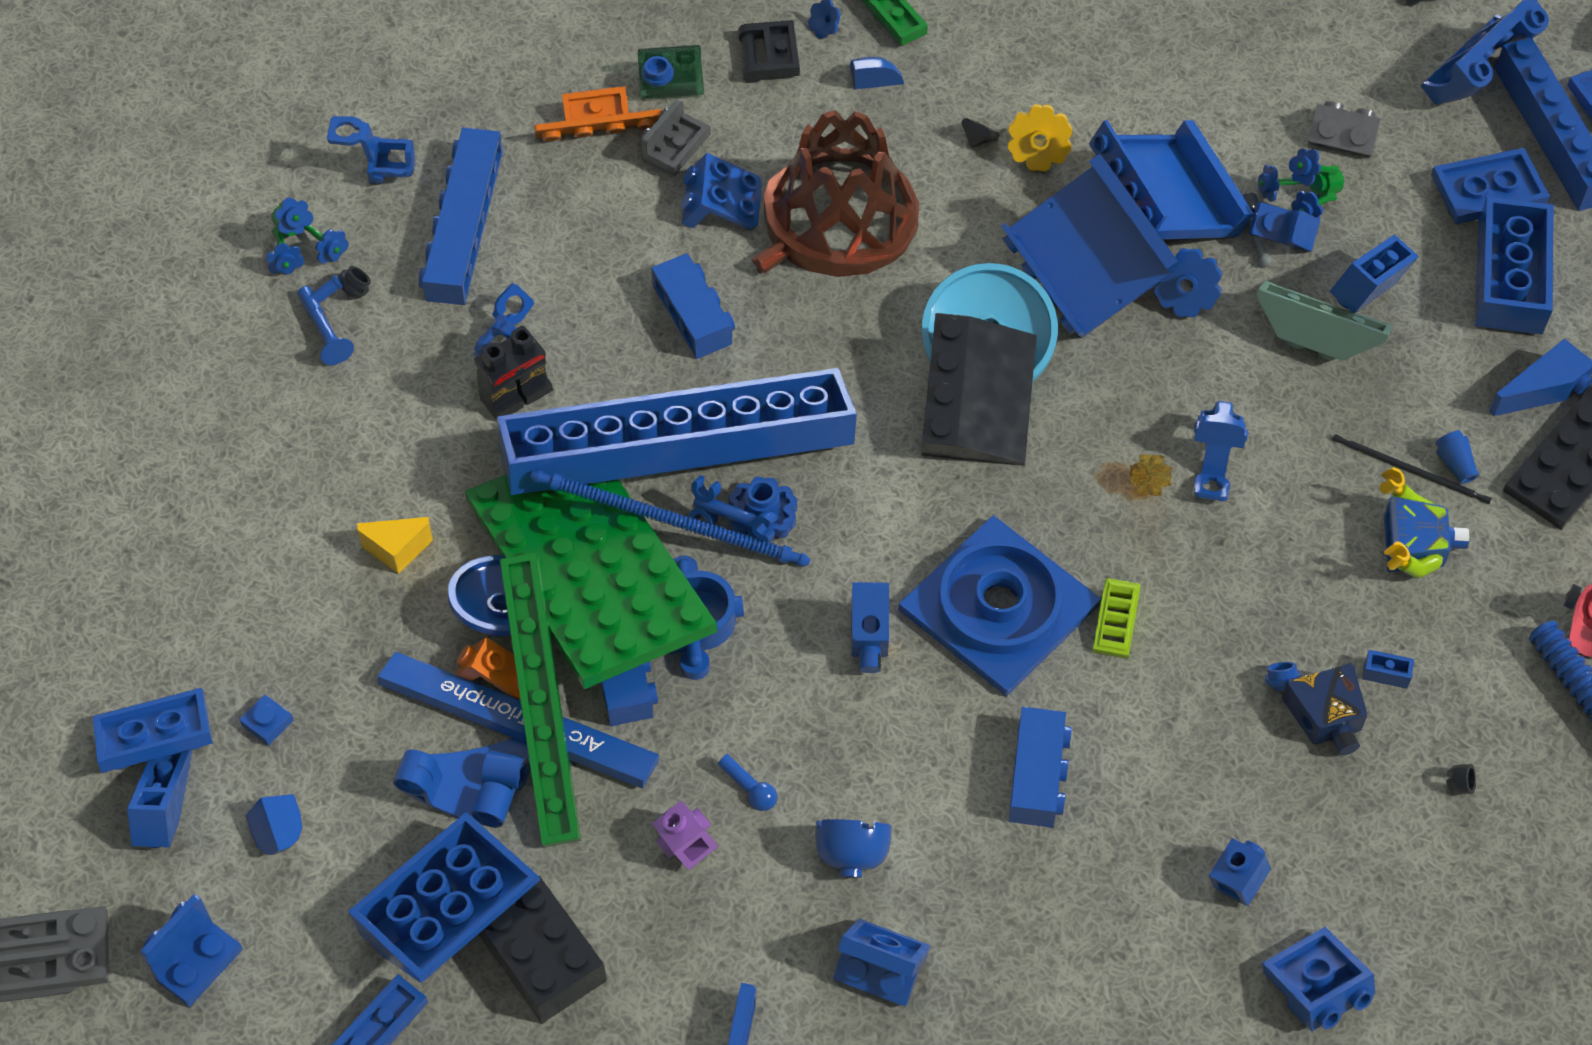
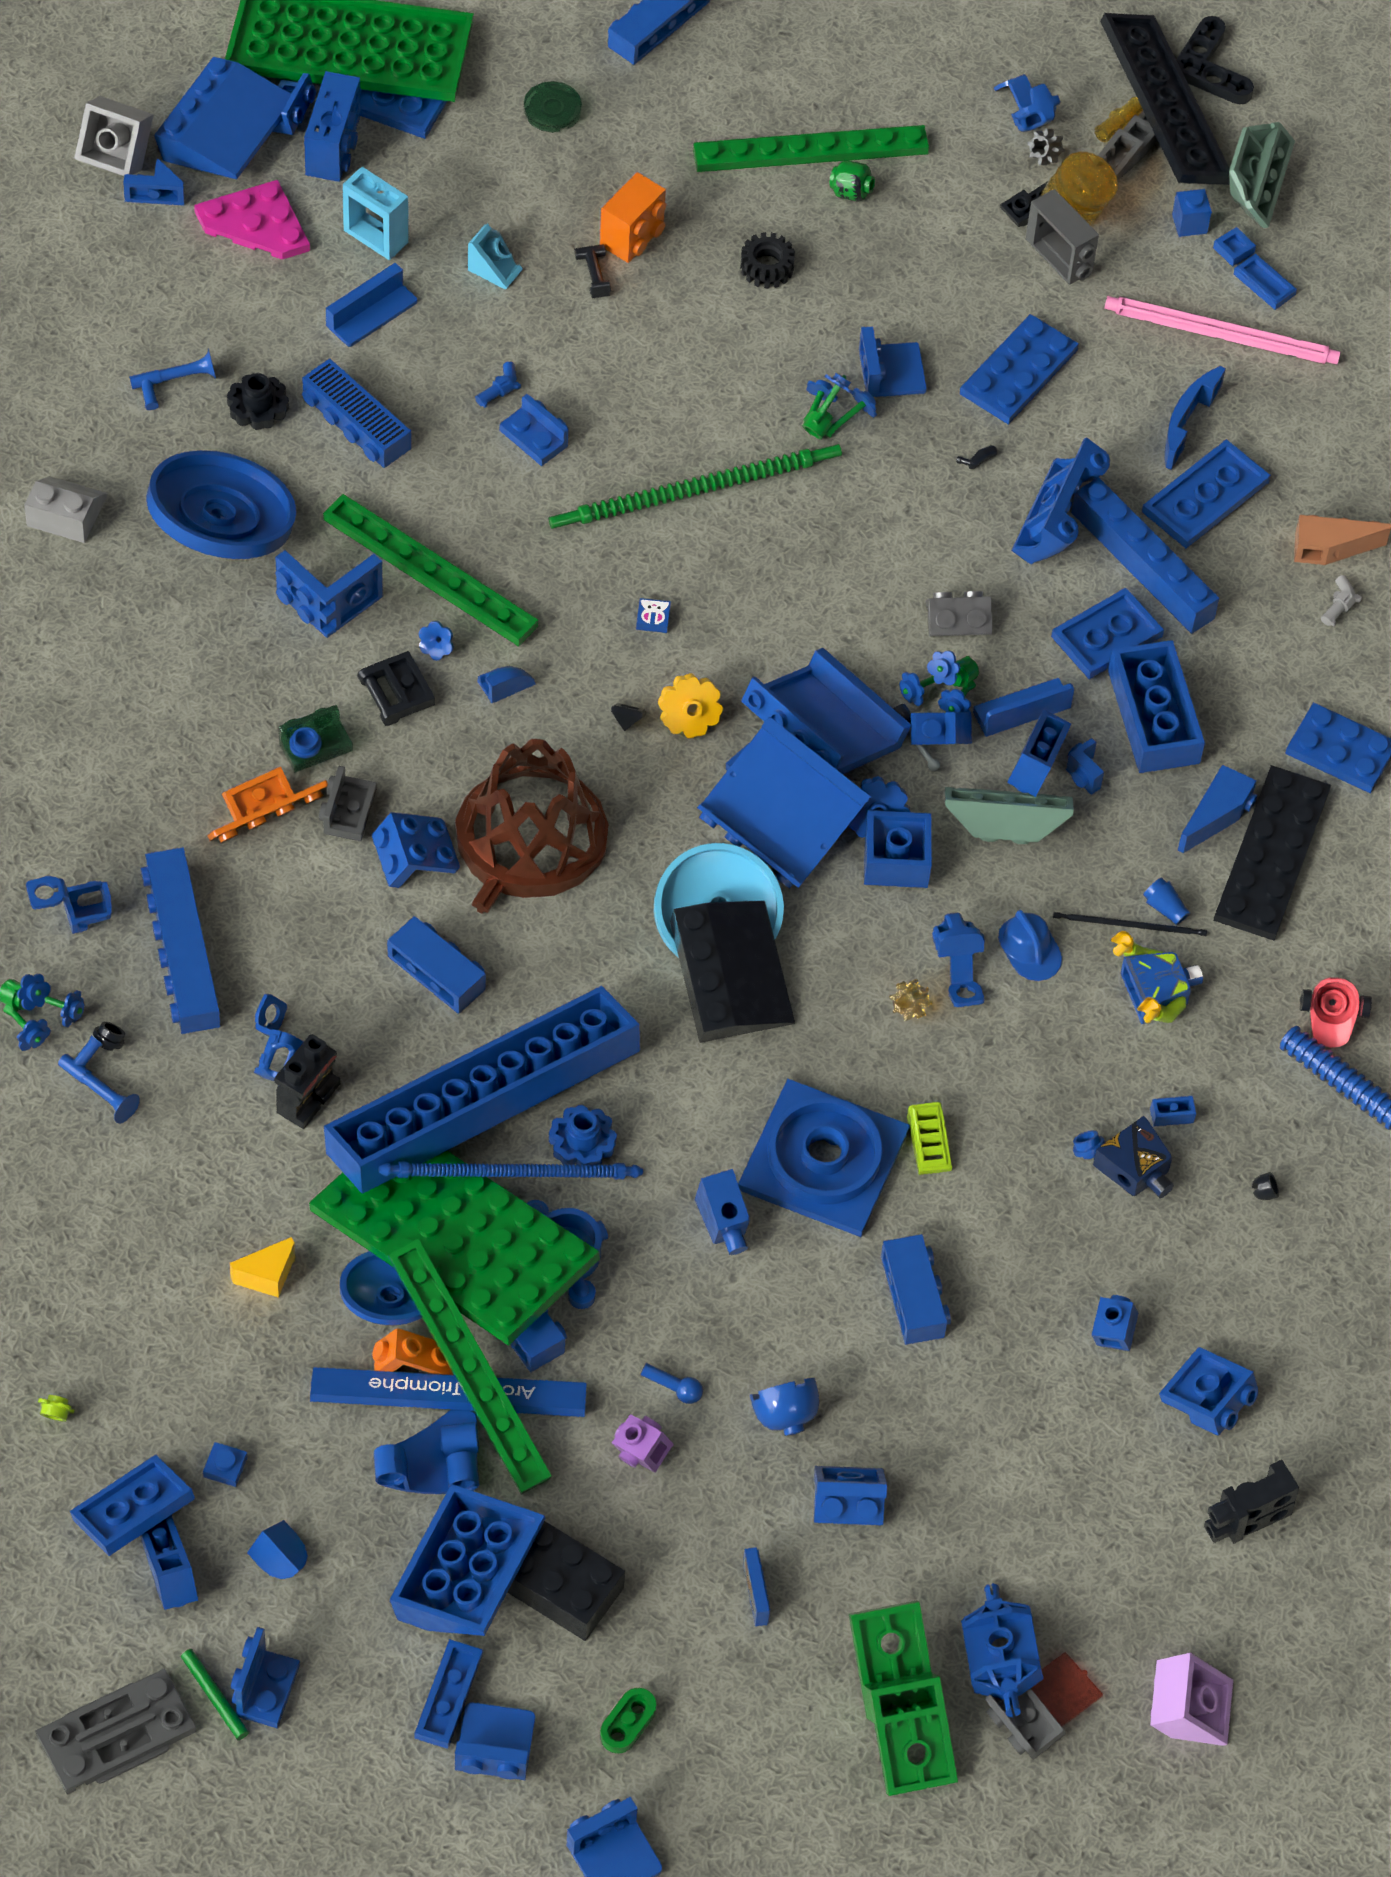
camera: 25 degrees left, 0 degrees up
(130, 611) = (55, 1408): none -> lime plate
(140, 934) = (214, 1694): none -> green bar
(711, 508) = (535, 1148): blue bar -> none
(1042, 52) = (653, 615): none -> tile
(1193, 326) = (897, 849): none -> blue slope
(1297, 460) = (1030, 946): none -> blue piece
(1372, 230) = (1023, 706): none -> blue panel
(1417, 304) = (1083, 769): none -> blue bracket

